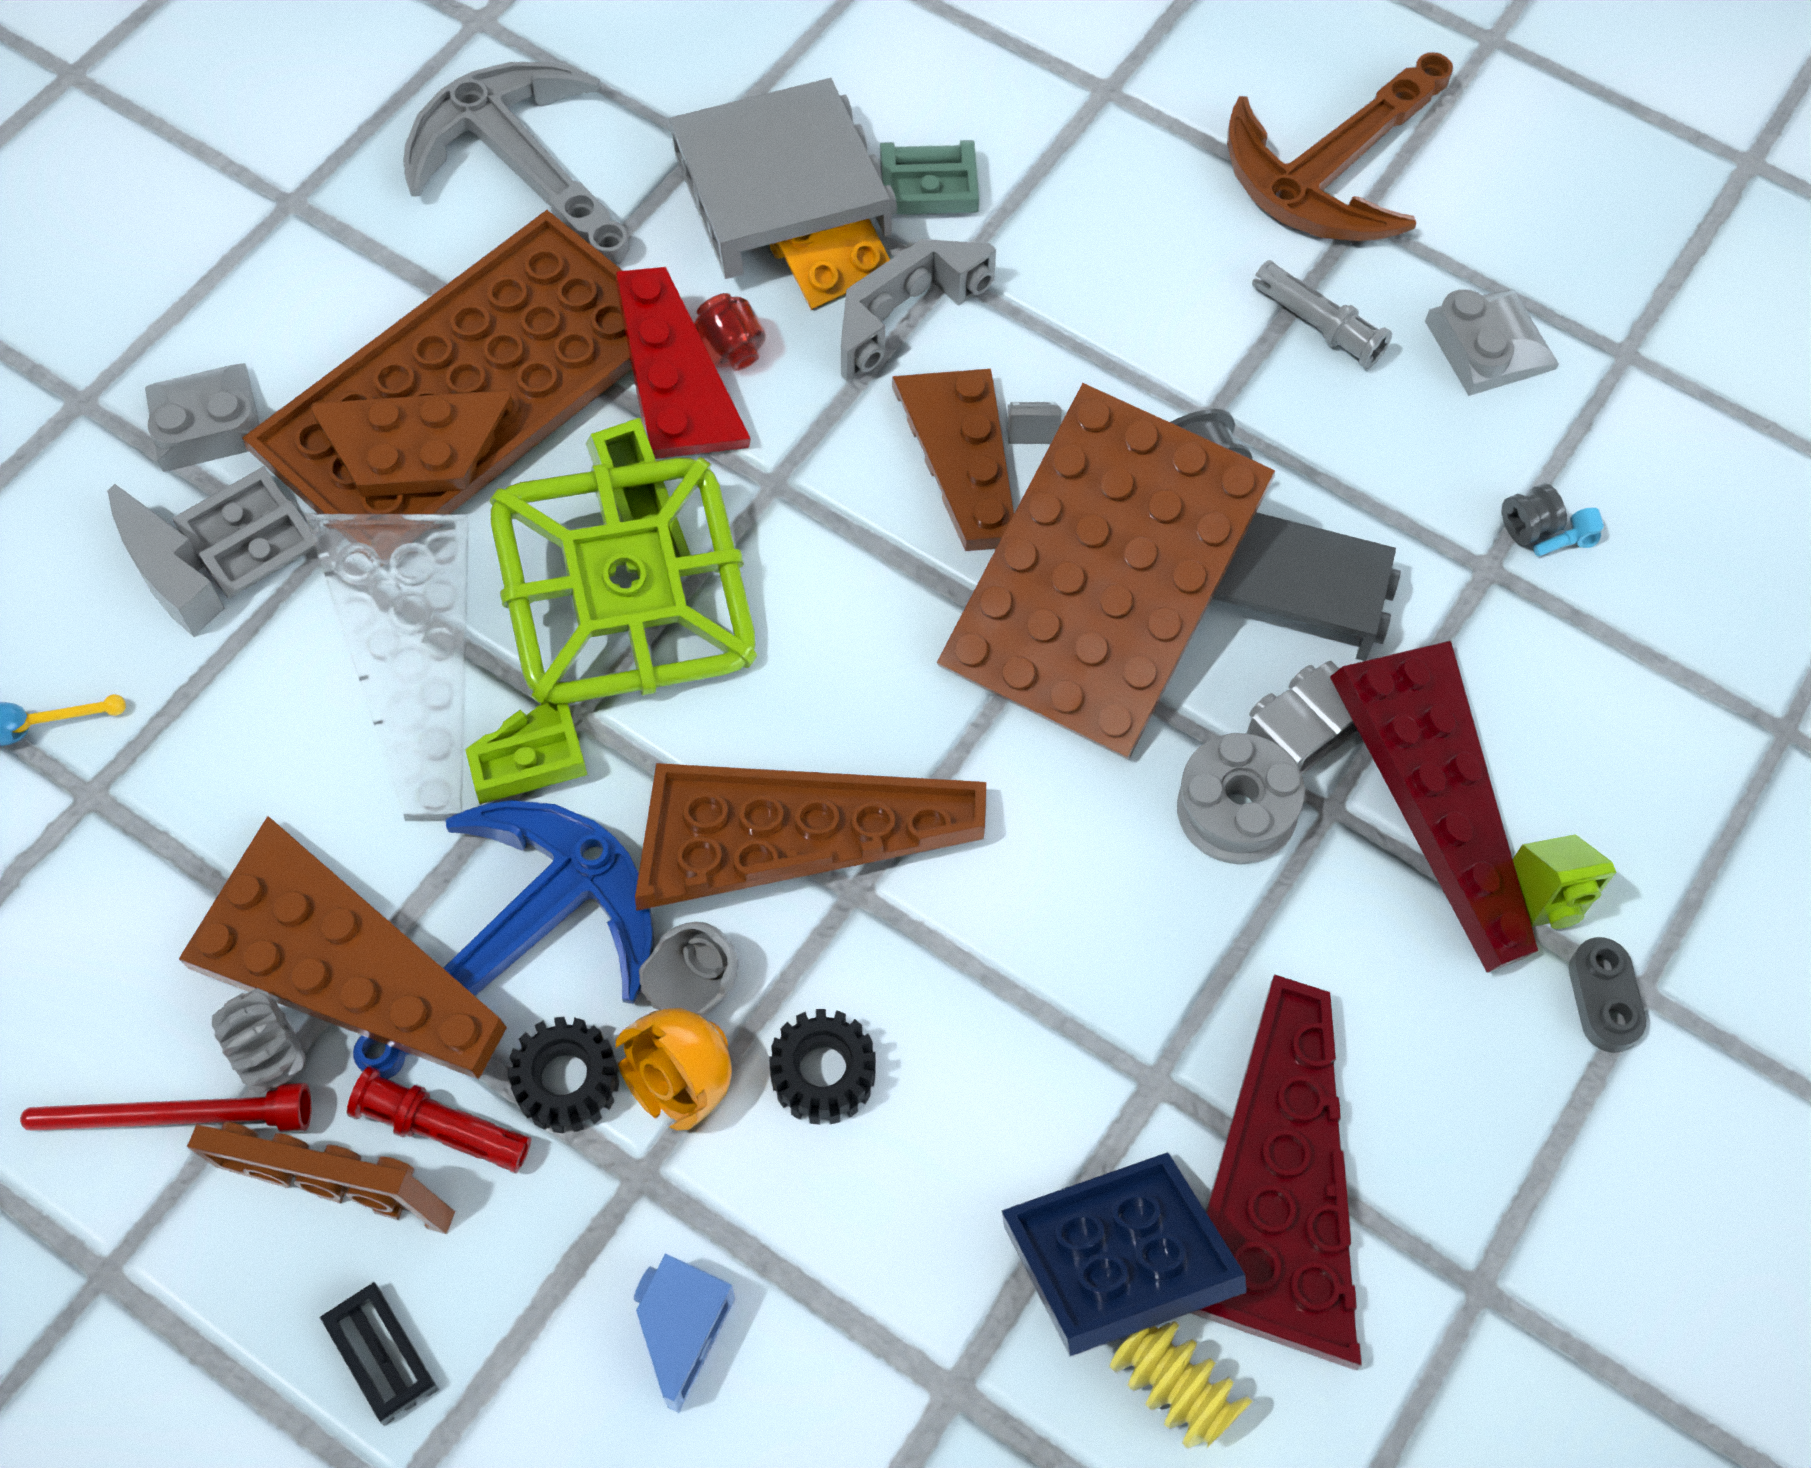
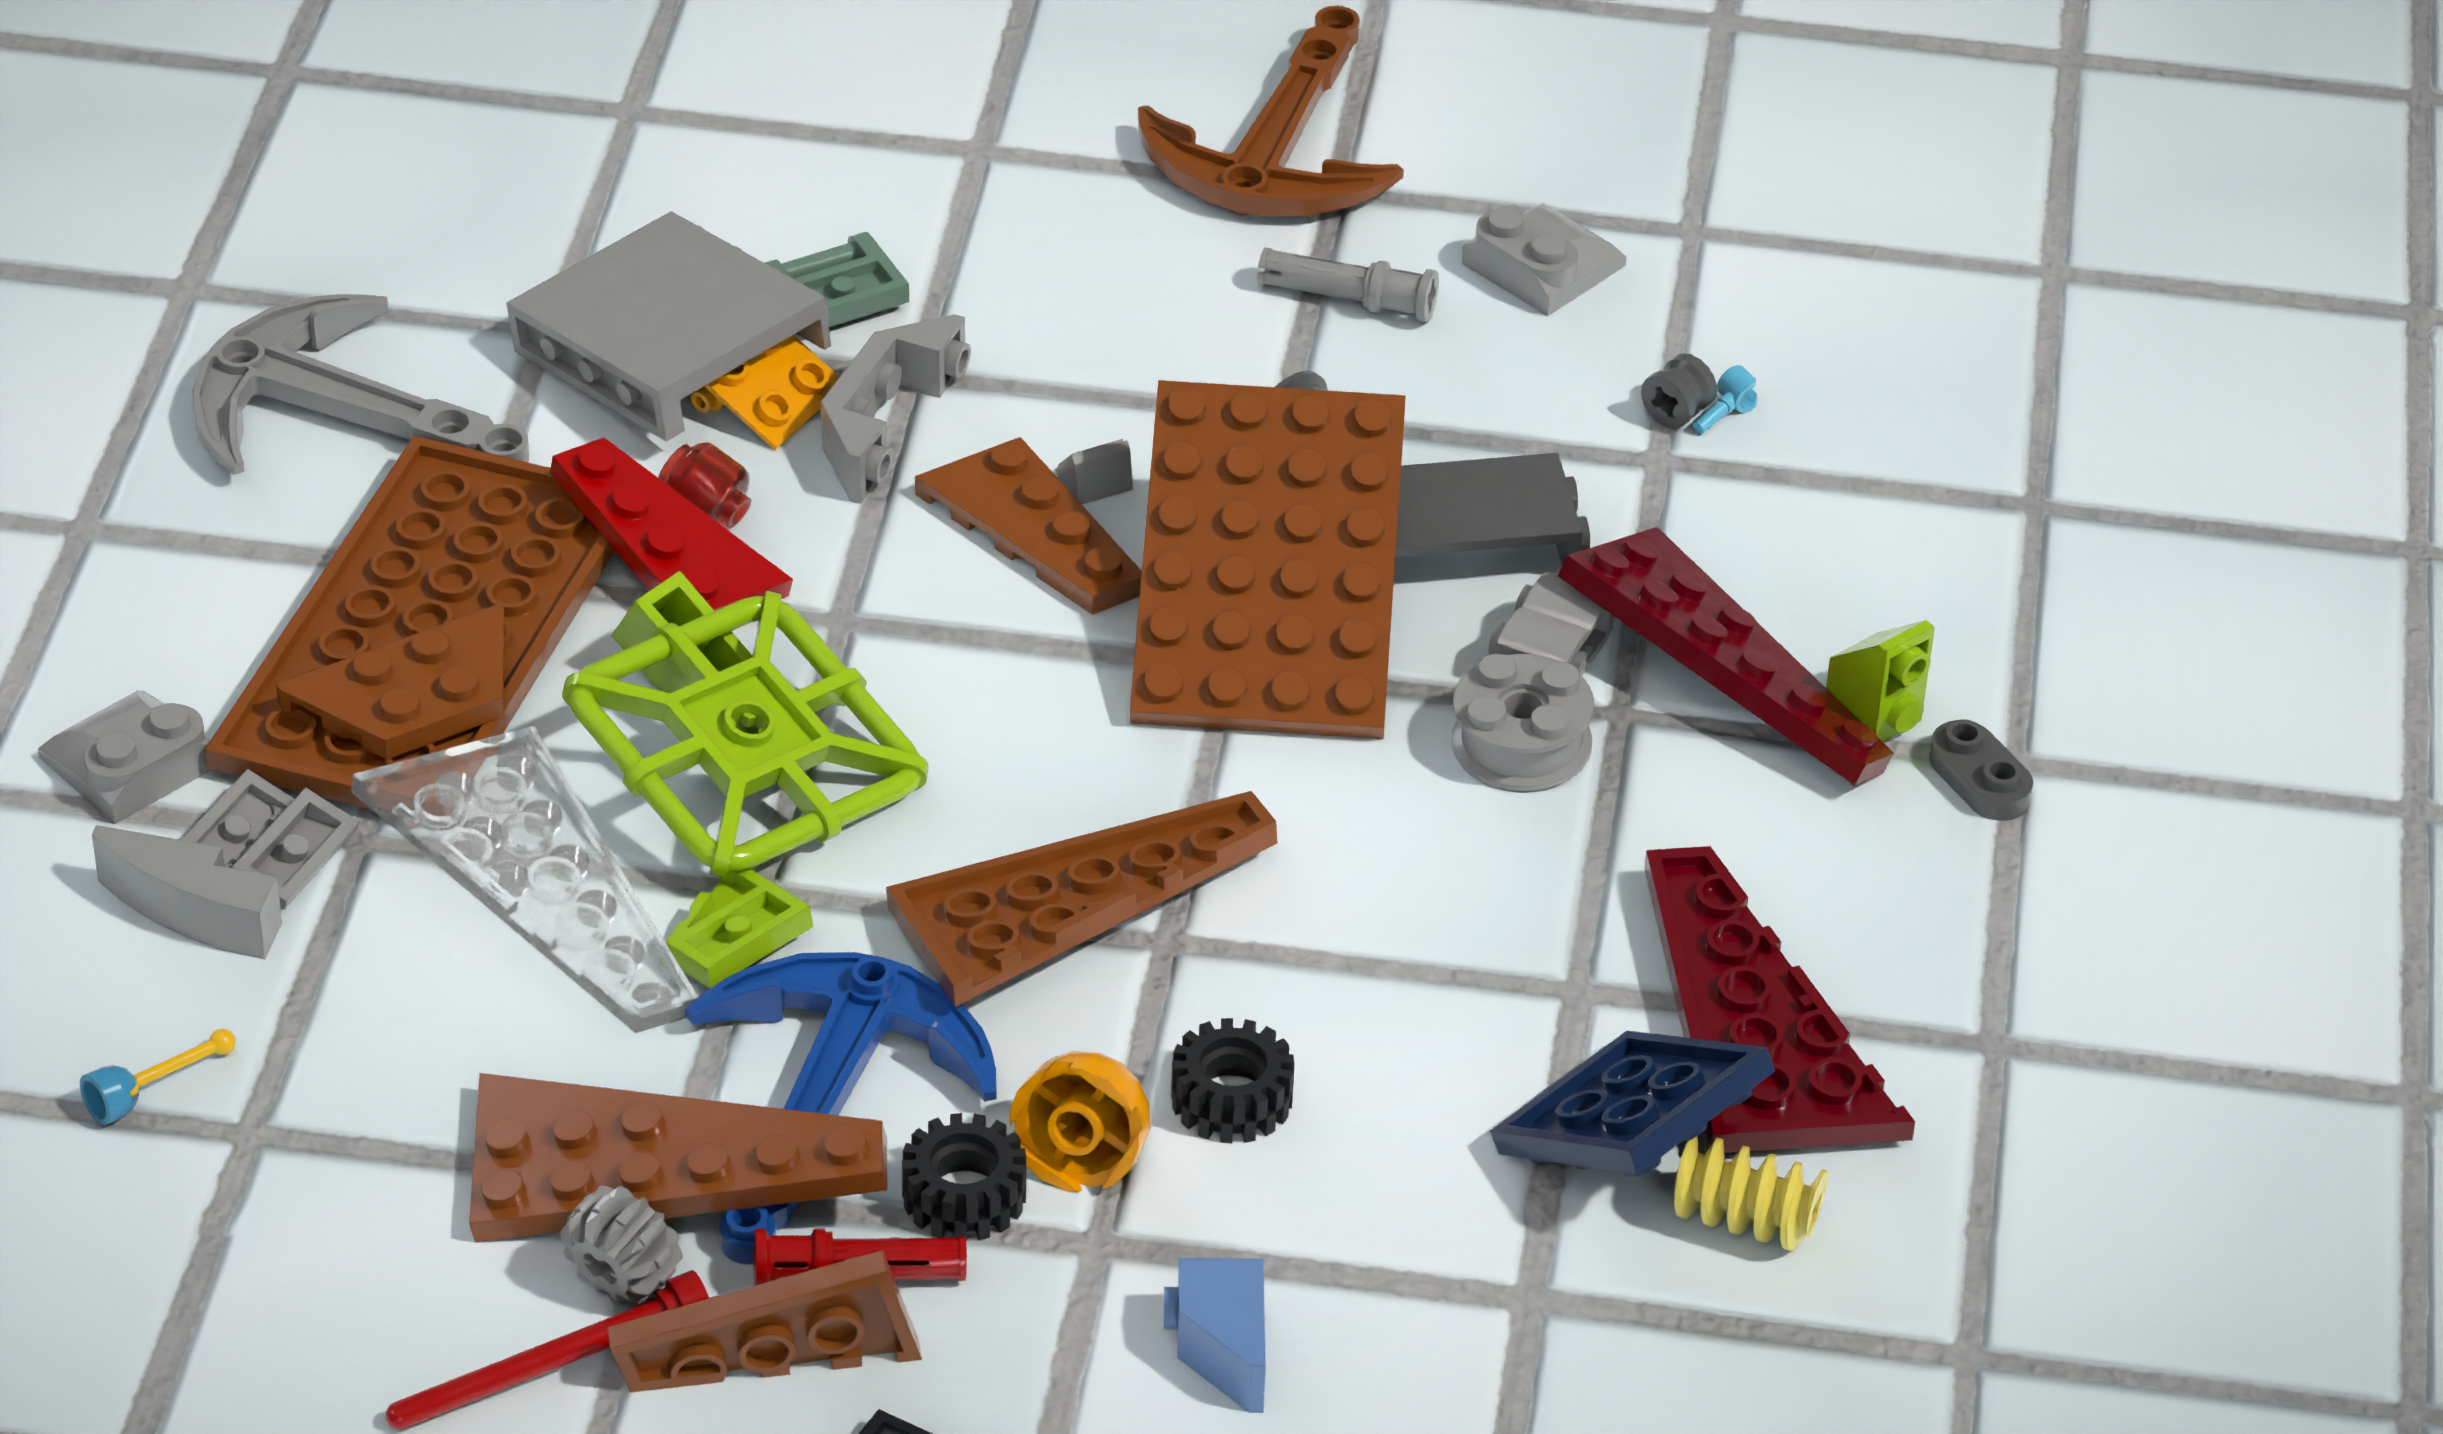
camera: 25 degrees left, 20 degrees down
(690, 969) = (1040, 1027): light grey hair -> none

